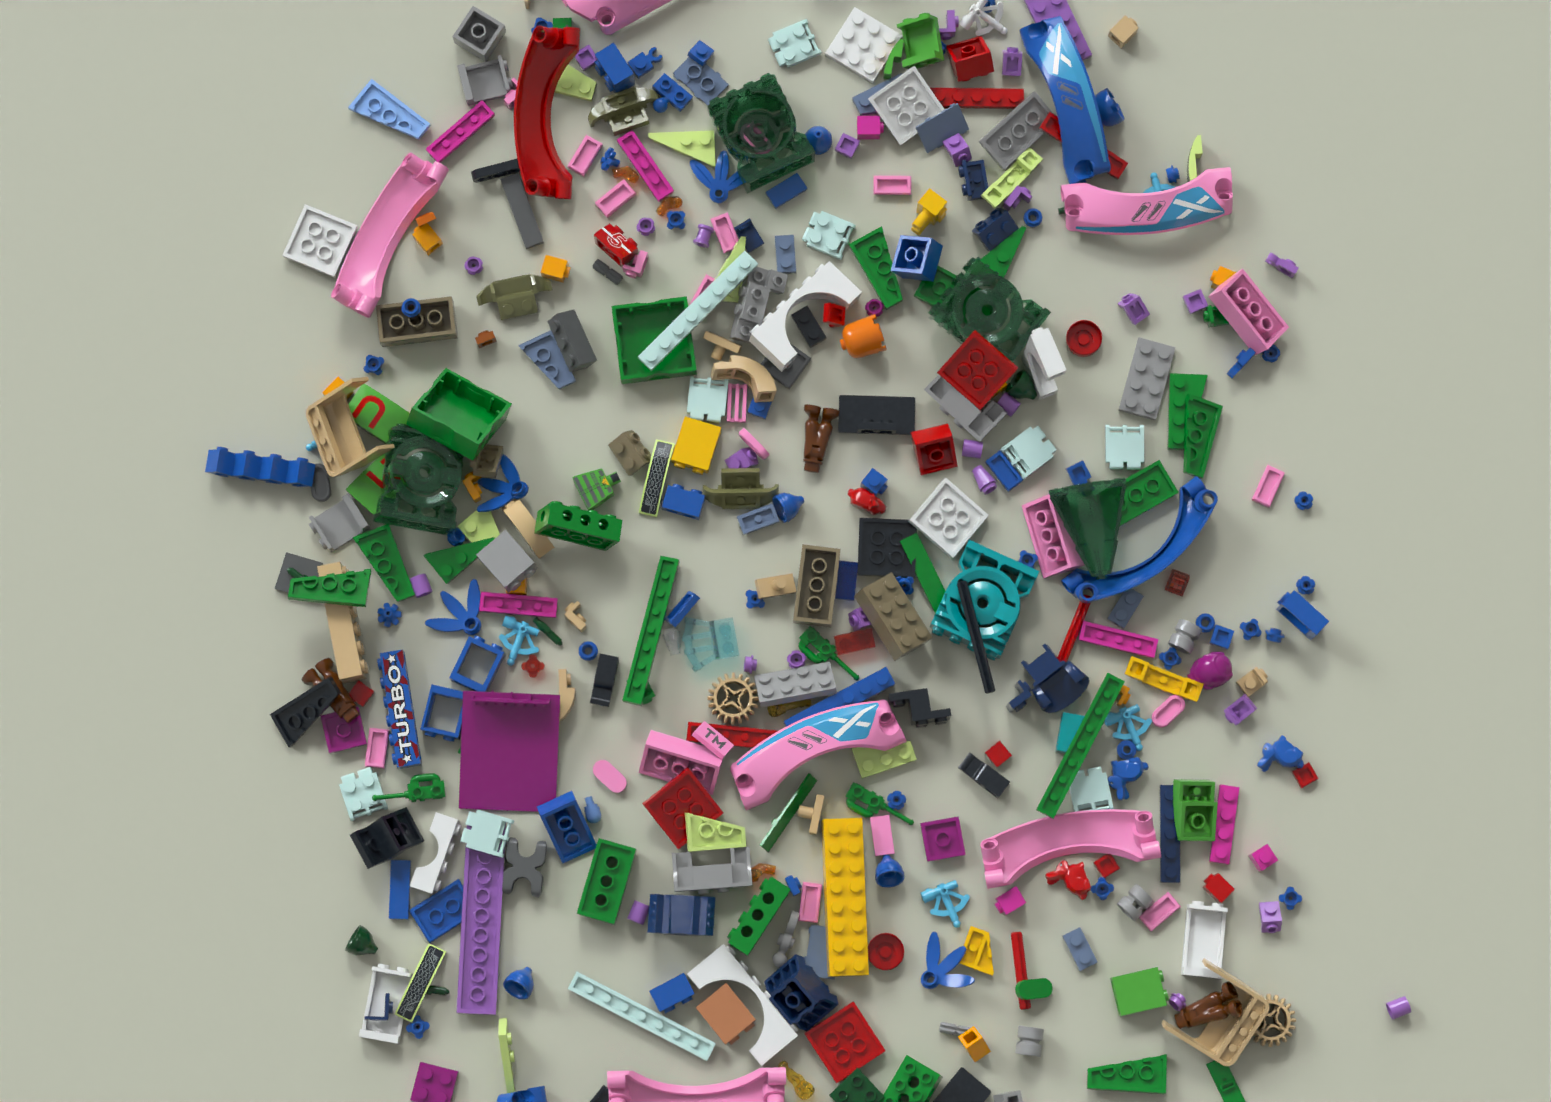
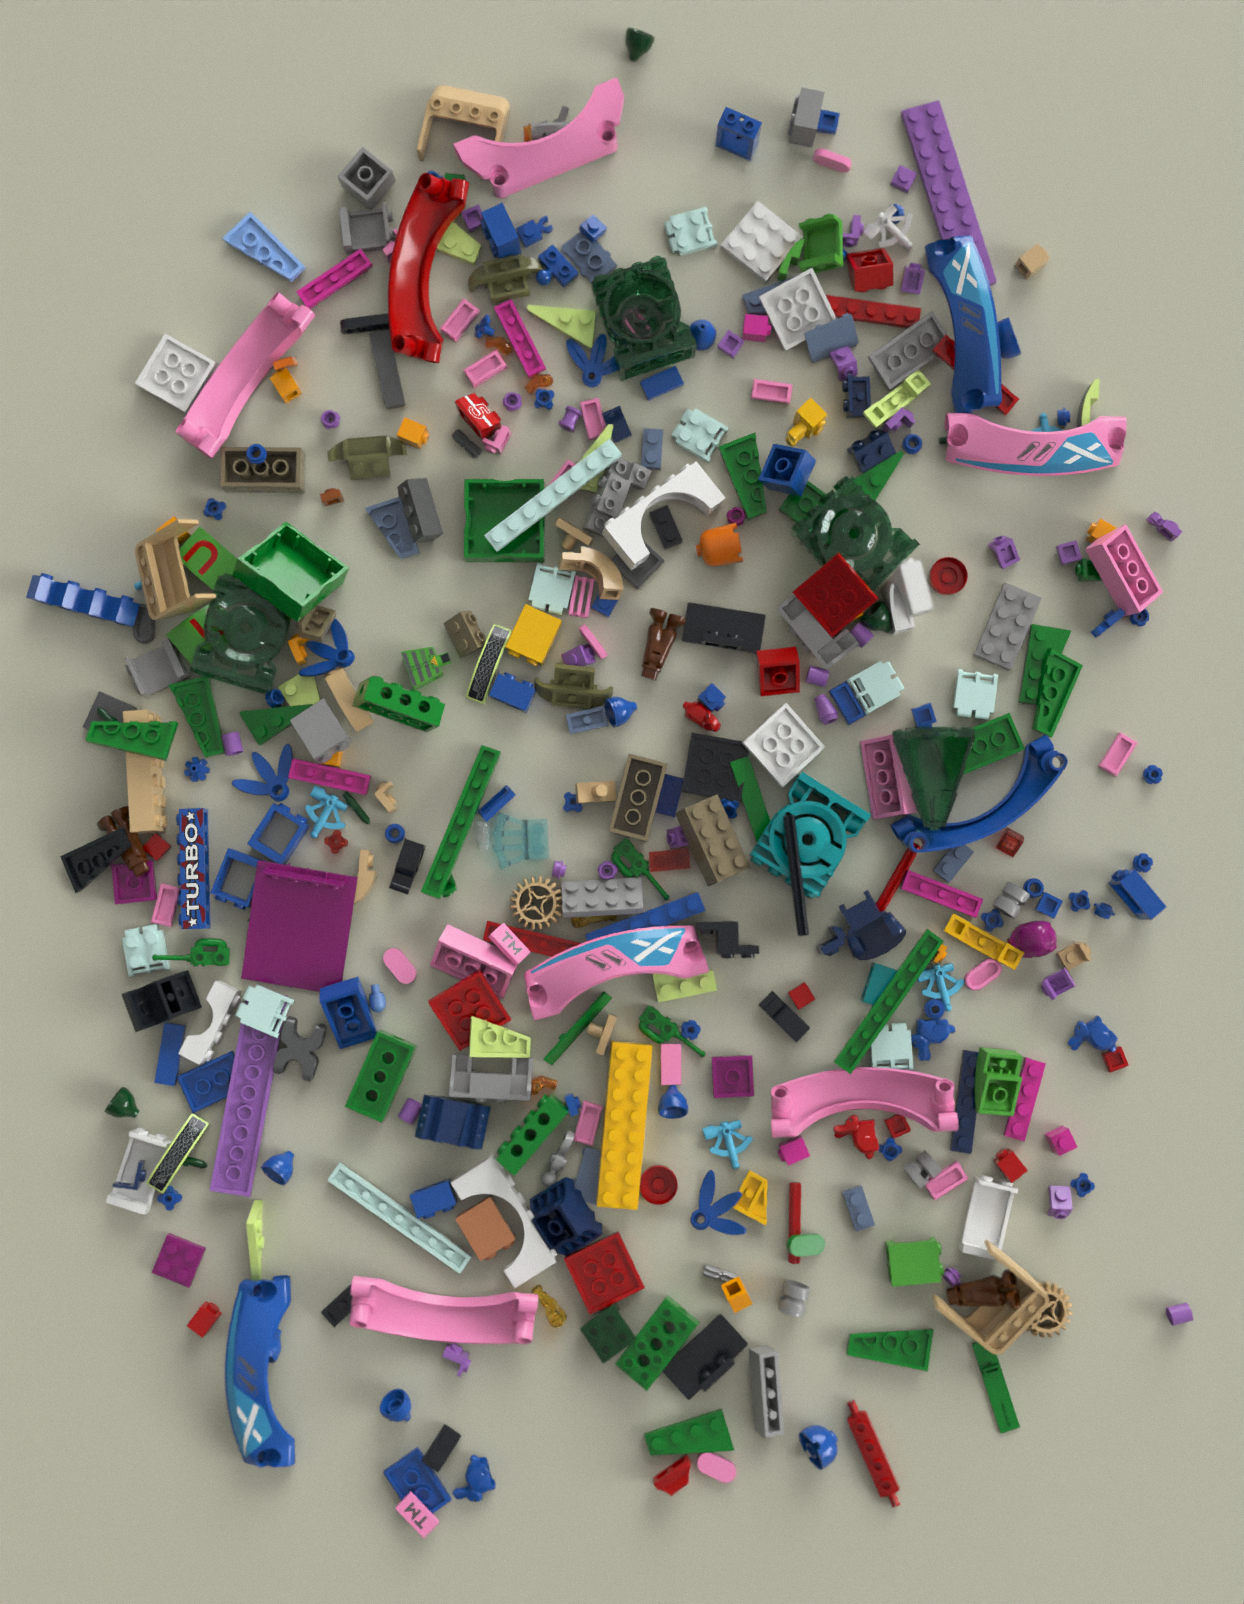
camera: 10 degrees right, 5 degrees up
(834, 315) = (693, 518): red bracket -> none
(1031, 557) = (857, 794): blue plate -> none

